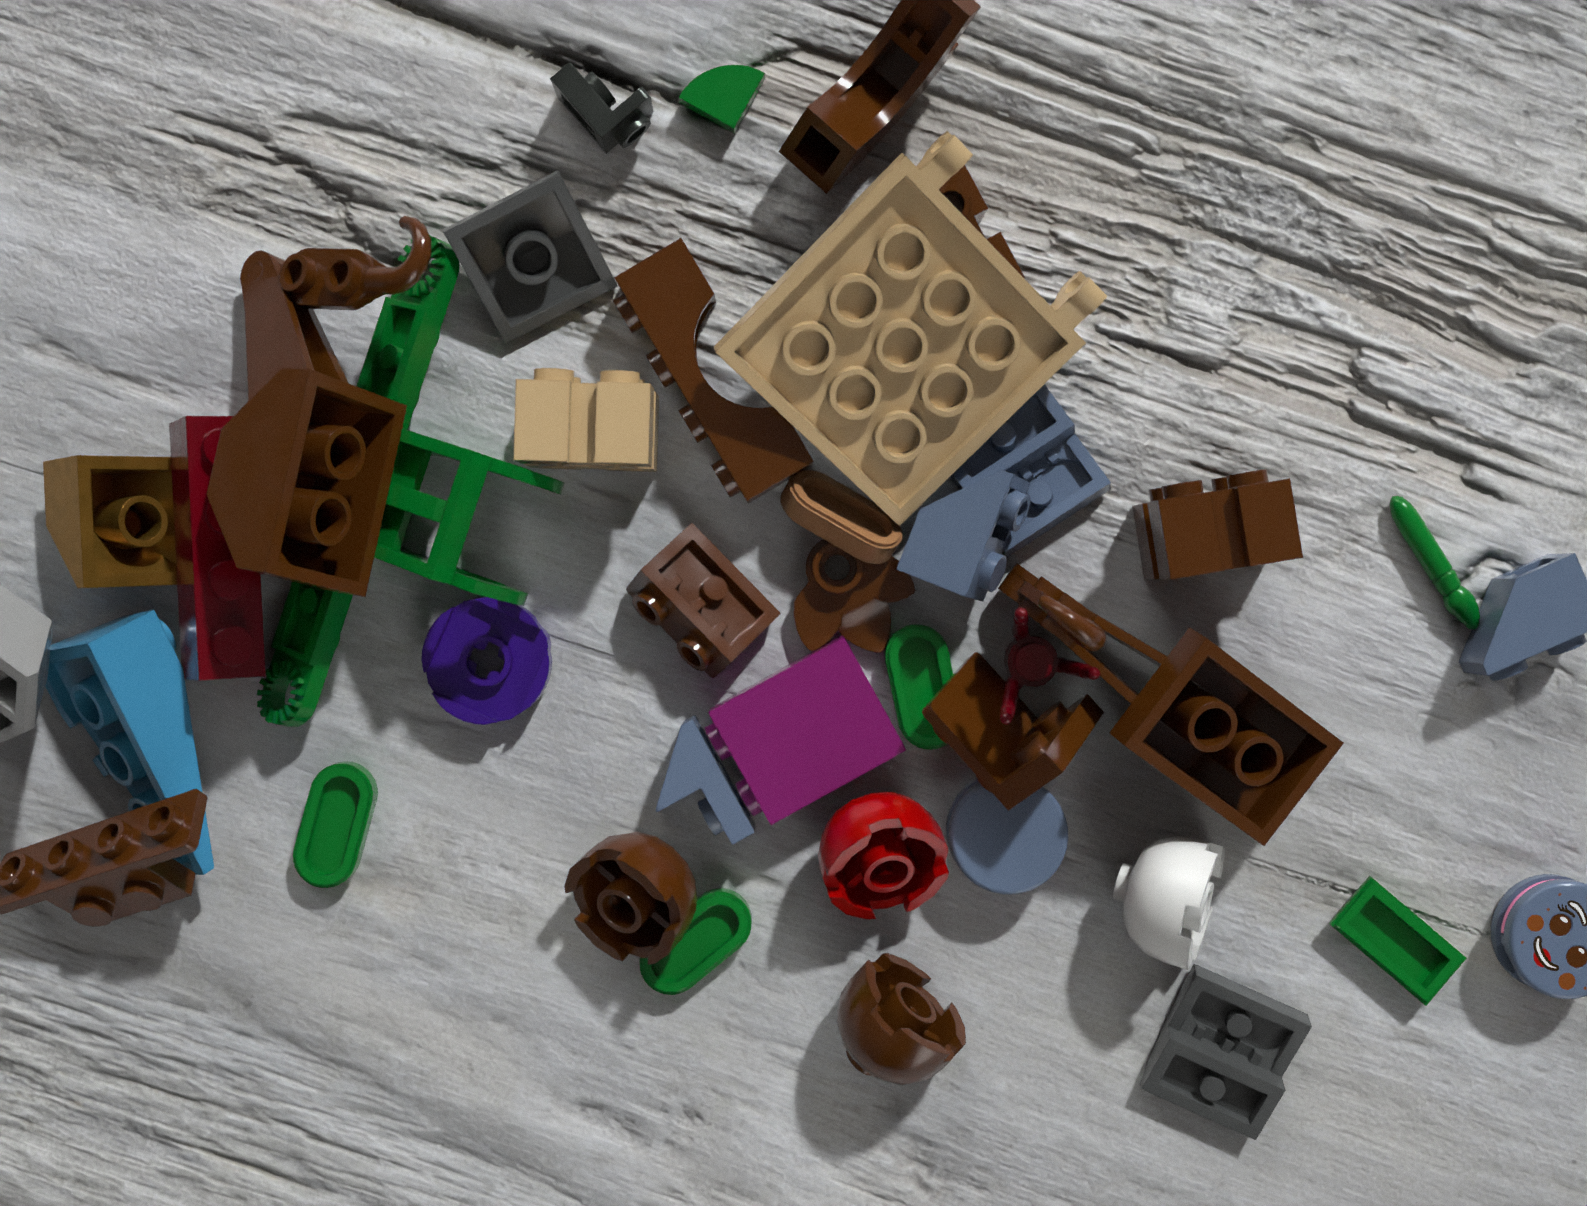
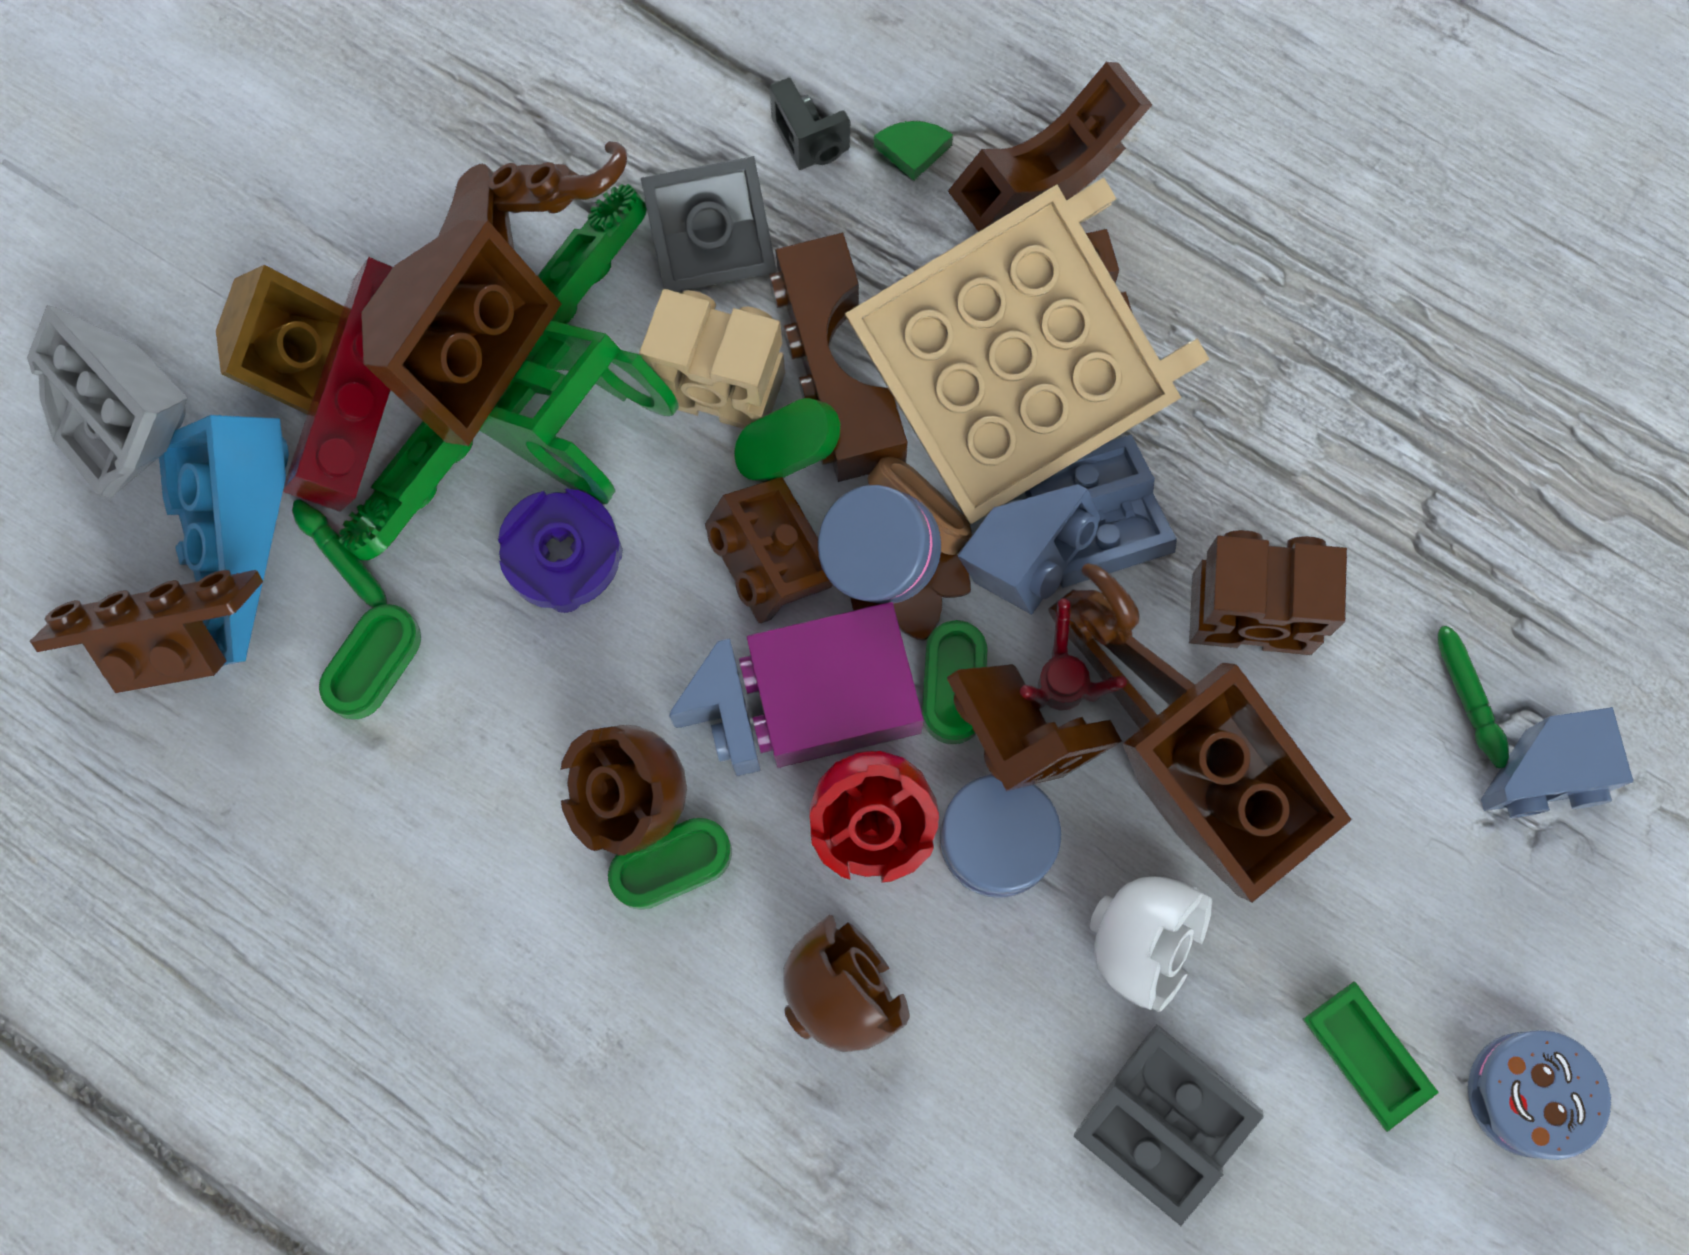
camera: 10 degrees right, 15 degrees down
(227, 700) = (354, 572): none -> green piece
(688, 487) = (787, 440): none -> green tile
(815, 582) = (879, 544): none -> sand blue head

